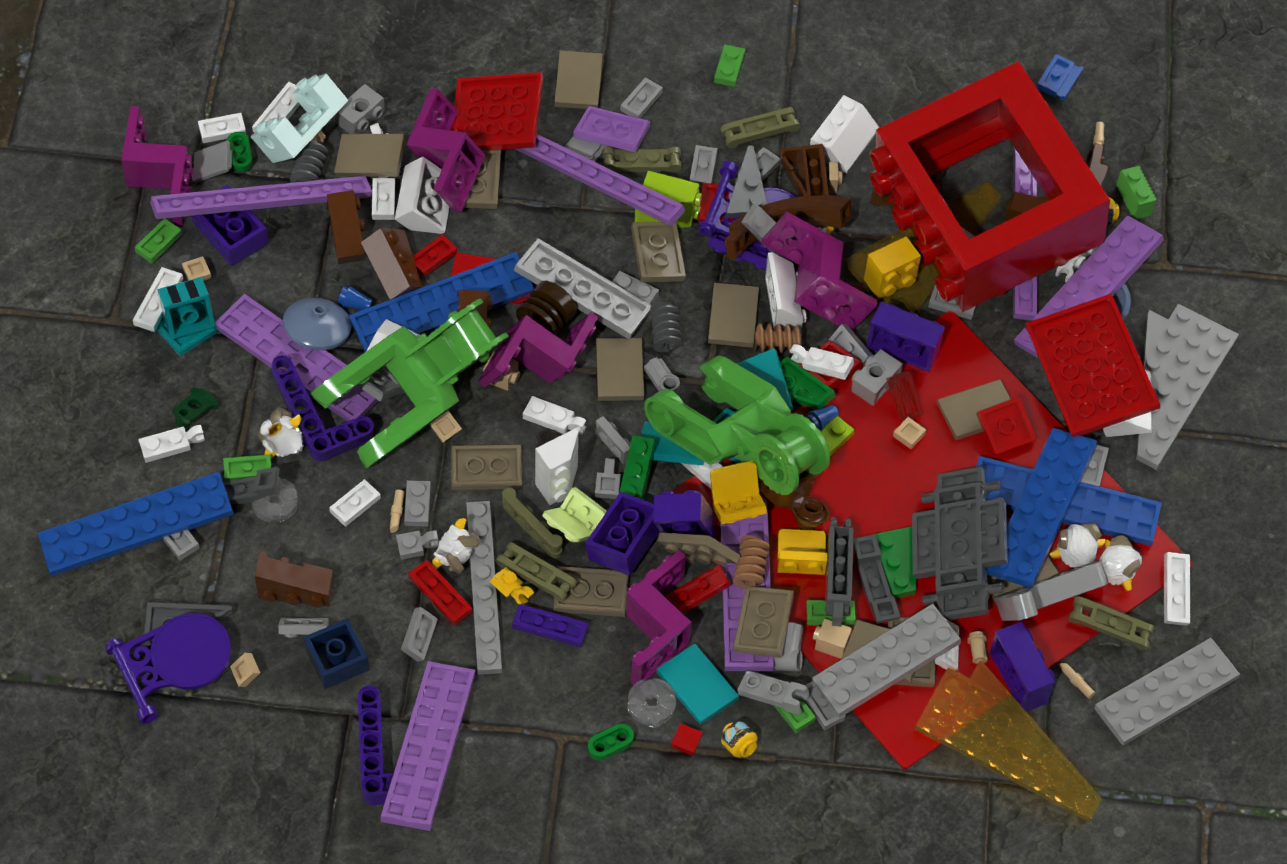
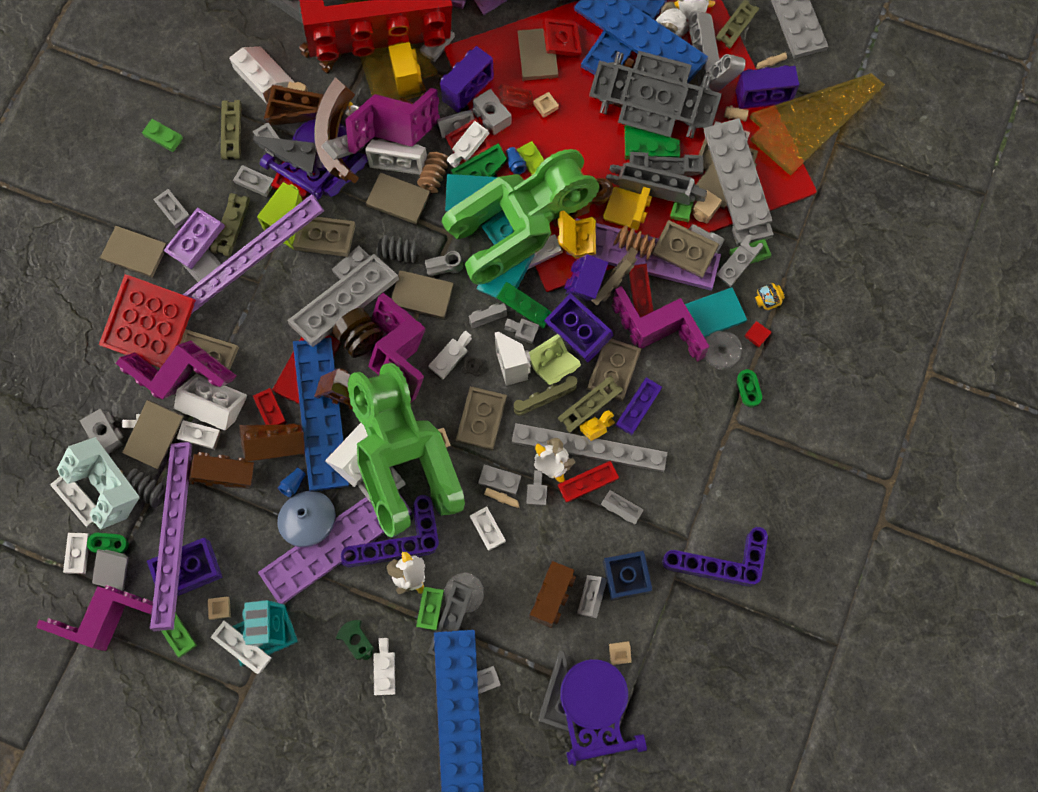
camera: 70 degrees left, 15 degrees up
(428, 746) = (731, 523): medium lavender plate -> none

